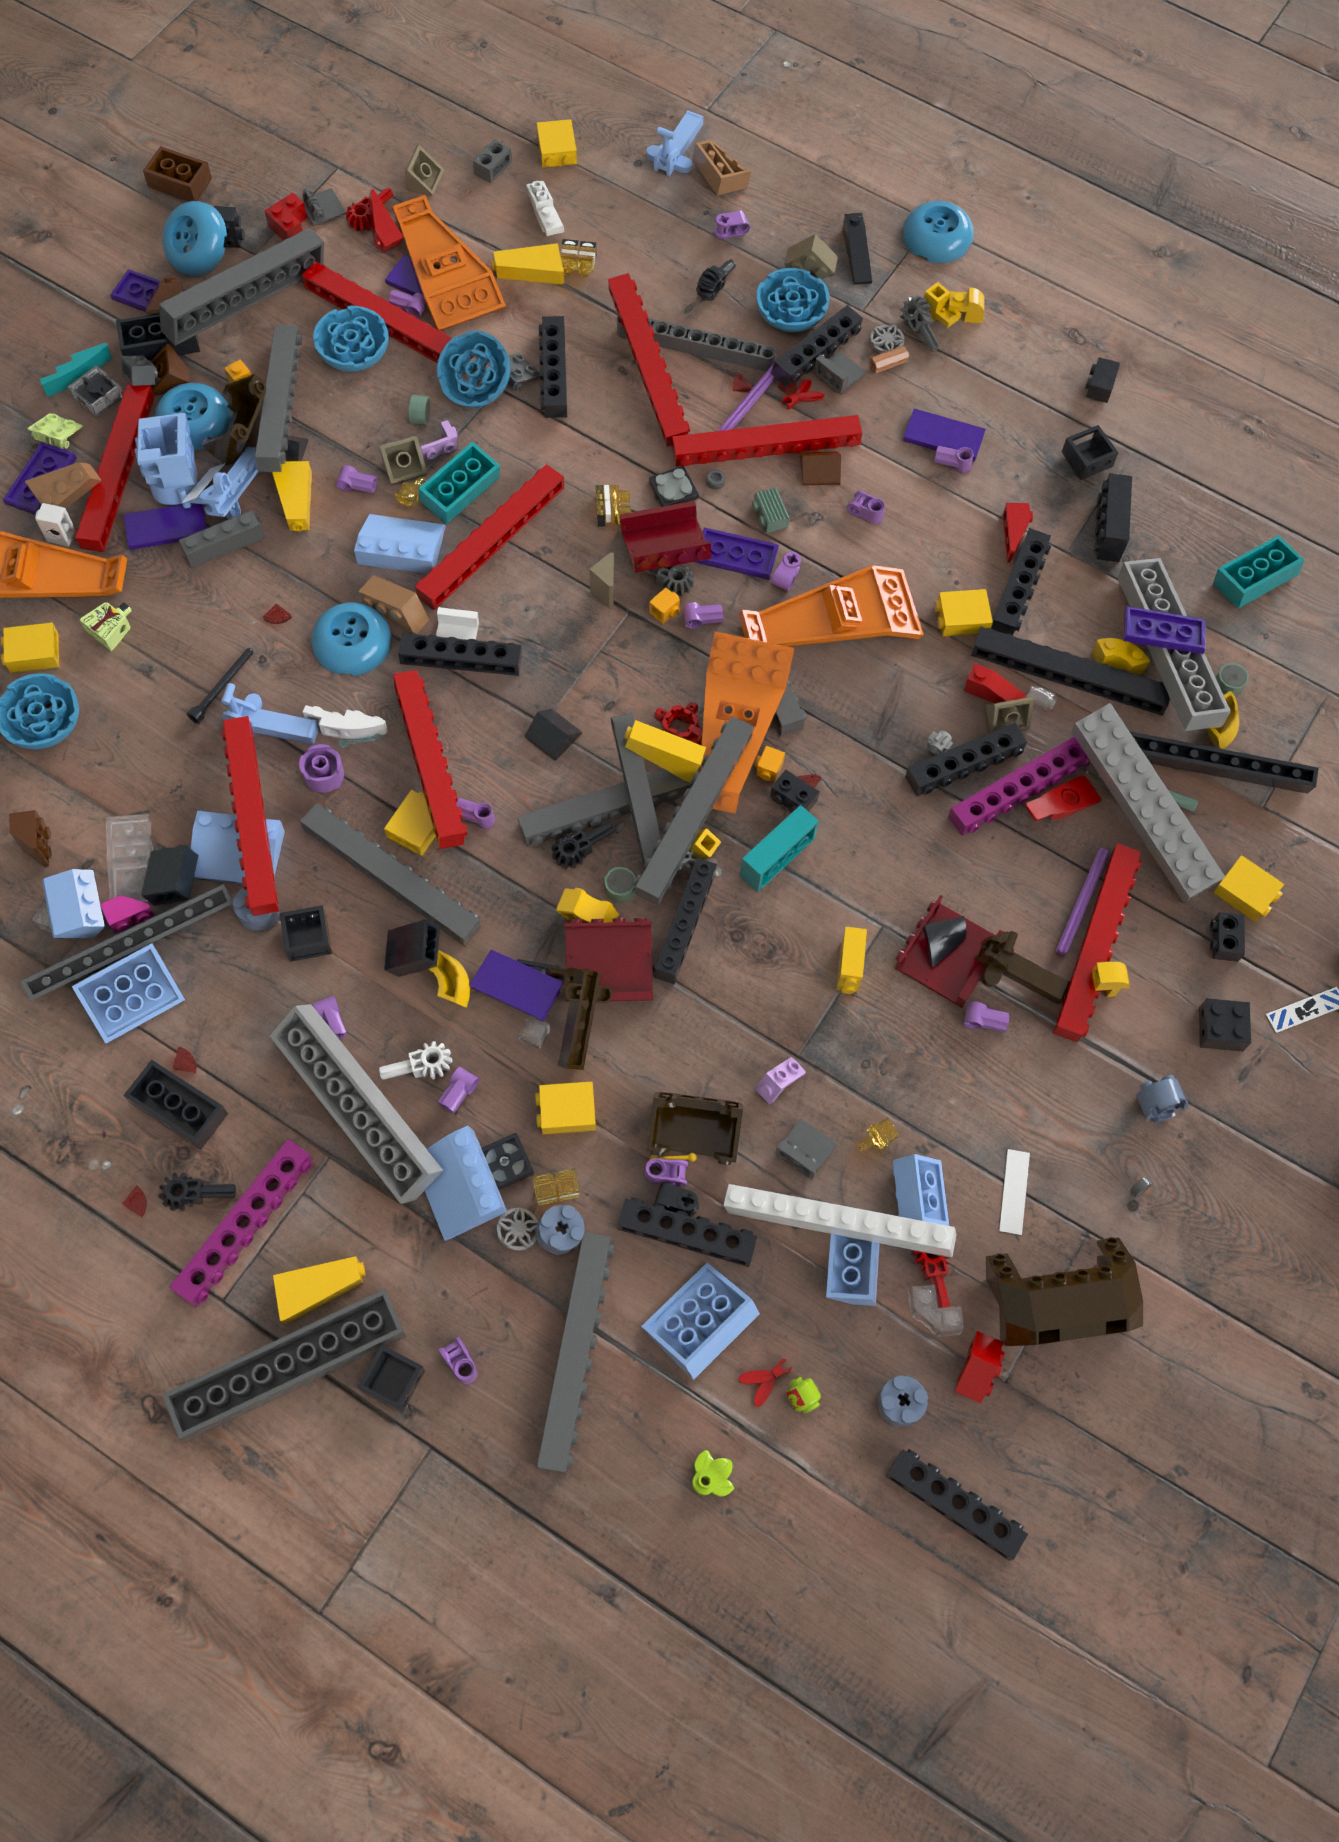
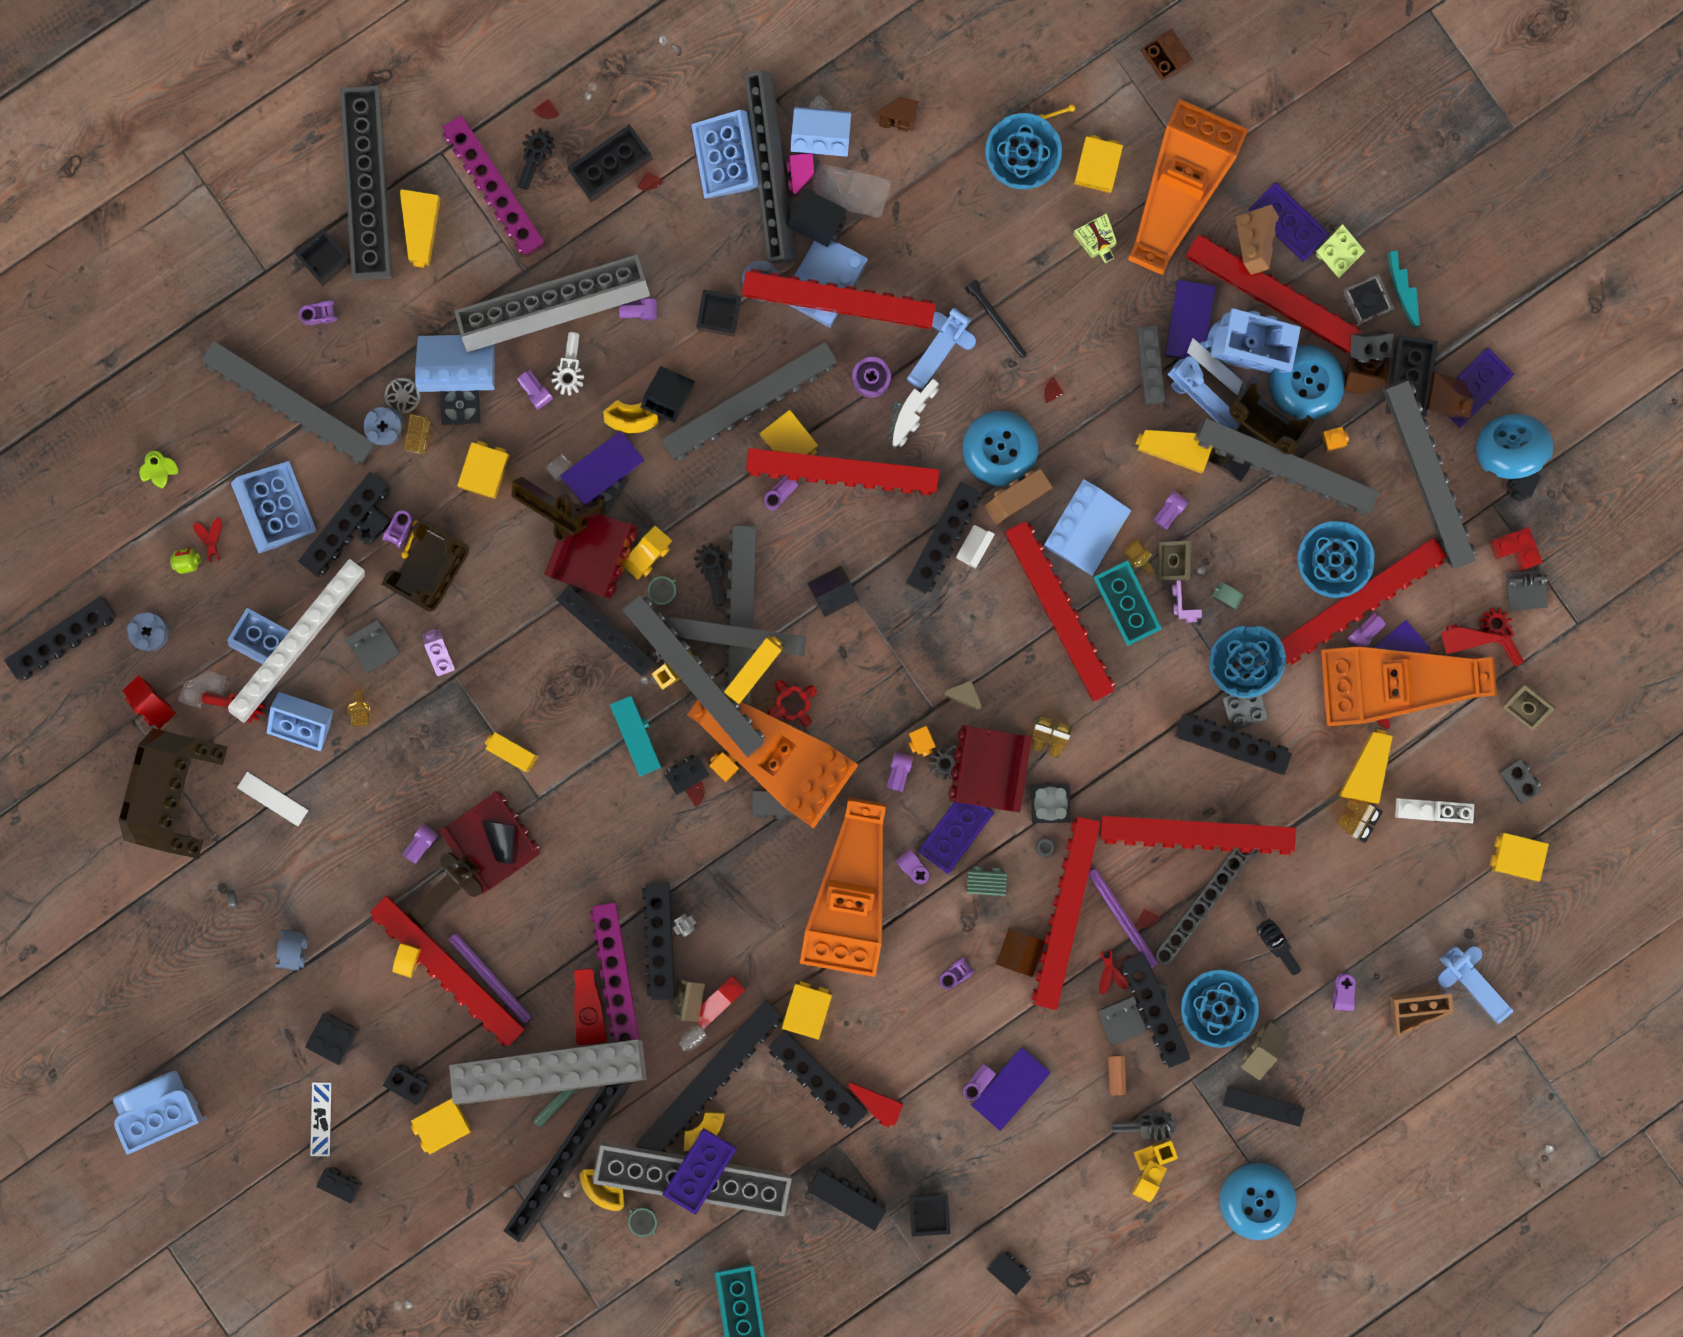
camera: 115 degrees right, 20 degrees up
(55, 524) = (1219, 220): white brick -> none
(177, 174) = (1616, 457): reddish brown brick -> none
(886, 339) = (1144, 1086): light grey wheel -> none

